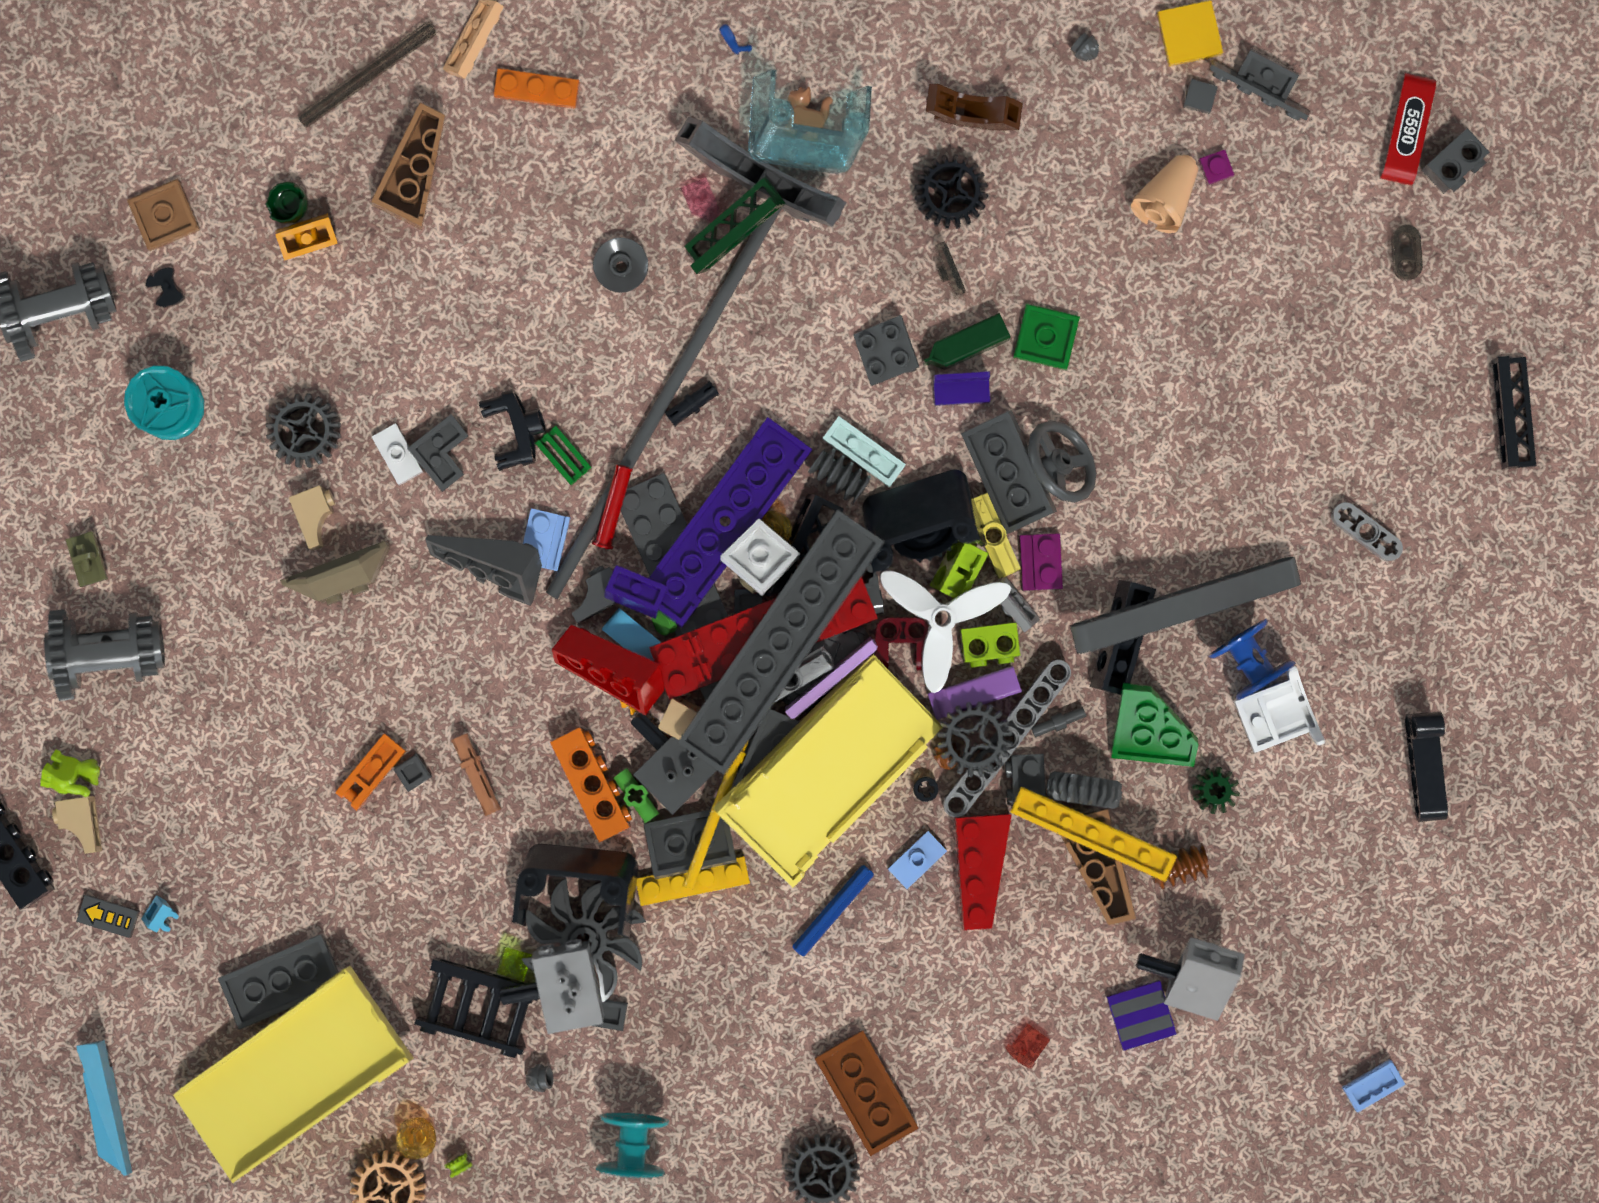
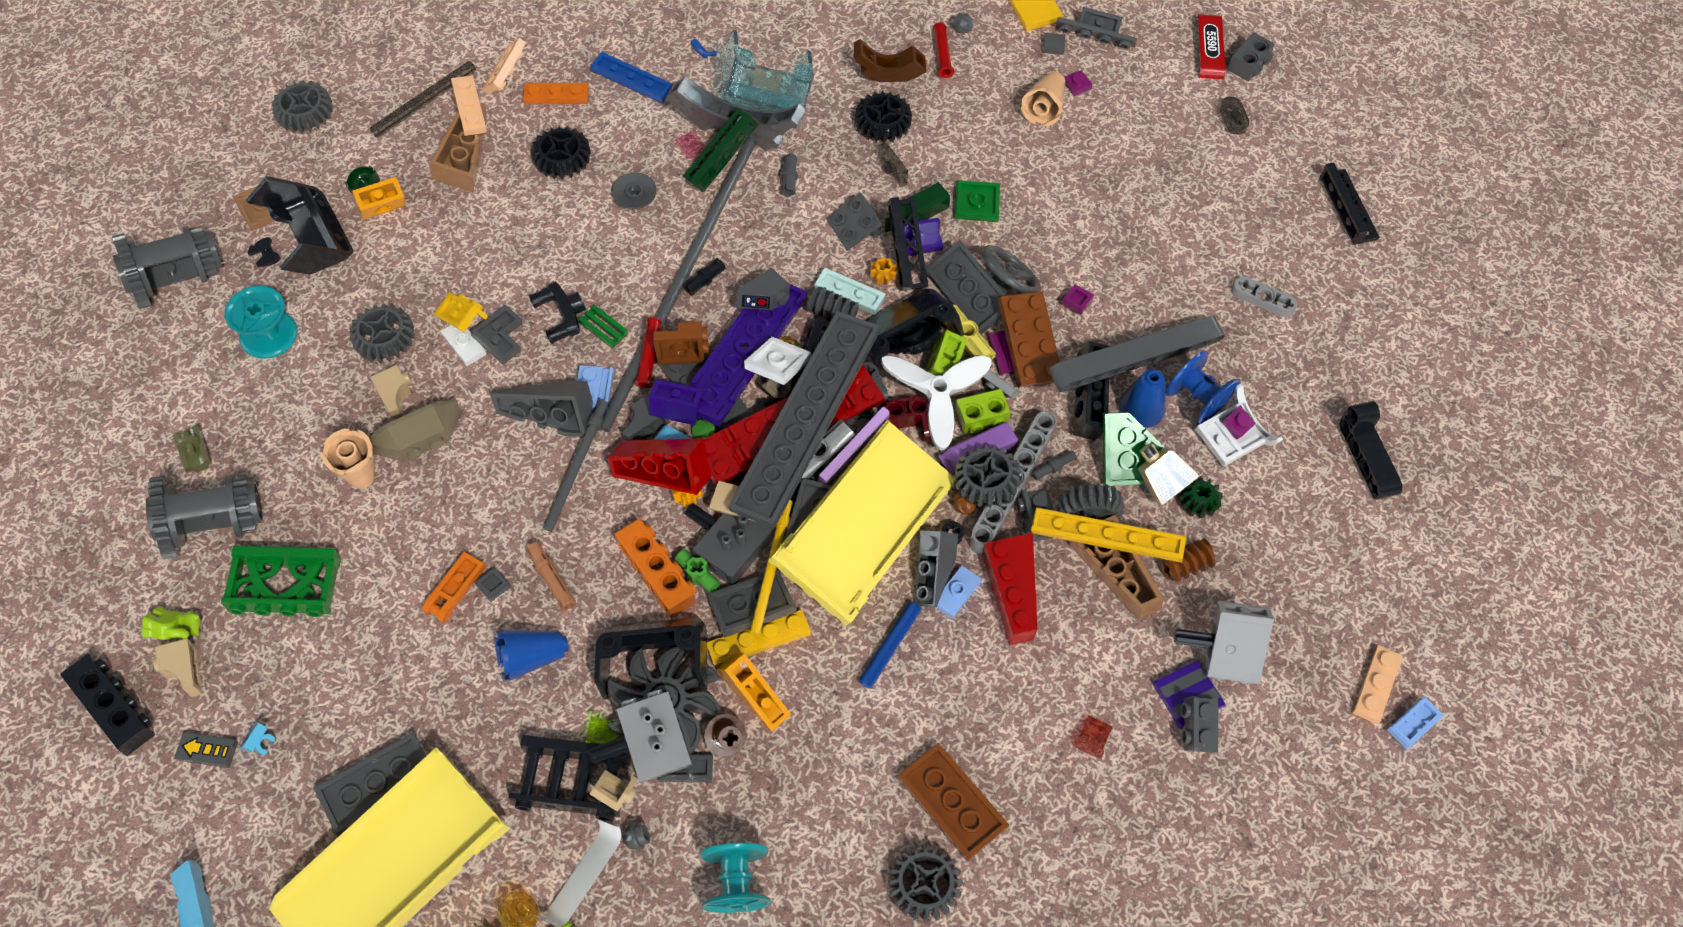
camera: 10 degrees left, 25 degrees down
(158, 711) = (257, 557): none -> green fence
(219, 61) = (302, 106): none -> dark grey gear
(226, 264) = (311, 221): none -> black windscreen
(263, 615) = (350, 457): none -> light nougat cone
(396, 419) = (459, 311): none -> yellow bracket
(424, 118) = (468, 105): none -> light nougat plate
(445, 863) = (527, 650): none -> blue cone
(480, 1113) = (584, 875): none -> white sticker
(521, 1035) = (613, 790): none -> tan bracket
(541, 593) = (594, 424): none -> dark grey bar
(545, 185) = (560, 158): none -> black gear
(636, 78) = (631, 77): none -> blue plate
(642, 989) = (725, 735): none -> reddish brown gear
(661, 514) = (682, 346): none -> dark orange plate
(678, 942) = (753, 690): none -> light orange slope
(760, 452) = (764, 292): none -> dark grey slope
(817, 266) = (789, 175): none -> dark grey pin
(897, 828) = (934, 566): none -> dark grey slope
(910, 438) = (883, 271): none -> light orange gear
(933, 404) = (901, 243): none -> black fence
(1049, 88) = (945, 67): none -> red pin
(1065, 559) = (1029, 337): none -> dark orange plate
(1137, 504) = (1077, 299): none -> magenta plate
(1142, 1055) = (1200, 724): none -> dark grey bracket
(1170, 662) = (1146, 399): none -> blue cone
(1179, 762) = (1164, 473): none -> torso
(1283, 706) = (1238, 422): none -> magenta plate
(1347, 1036) = (1377, 684): none -> light nougat plate

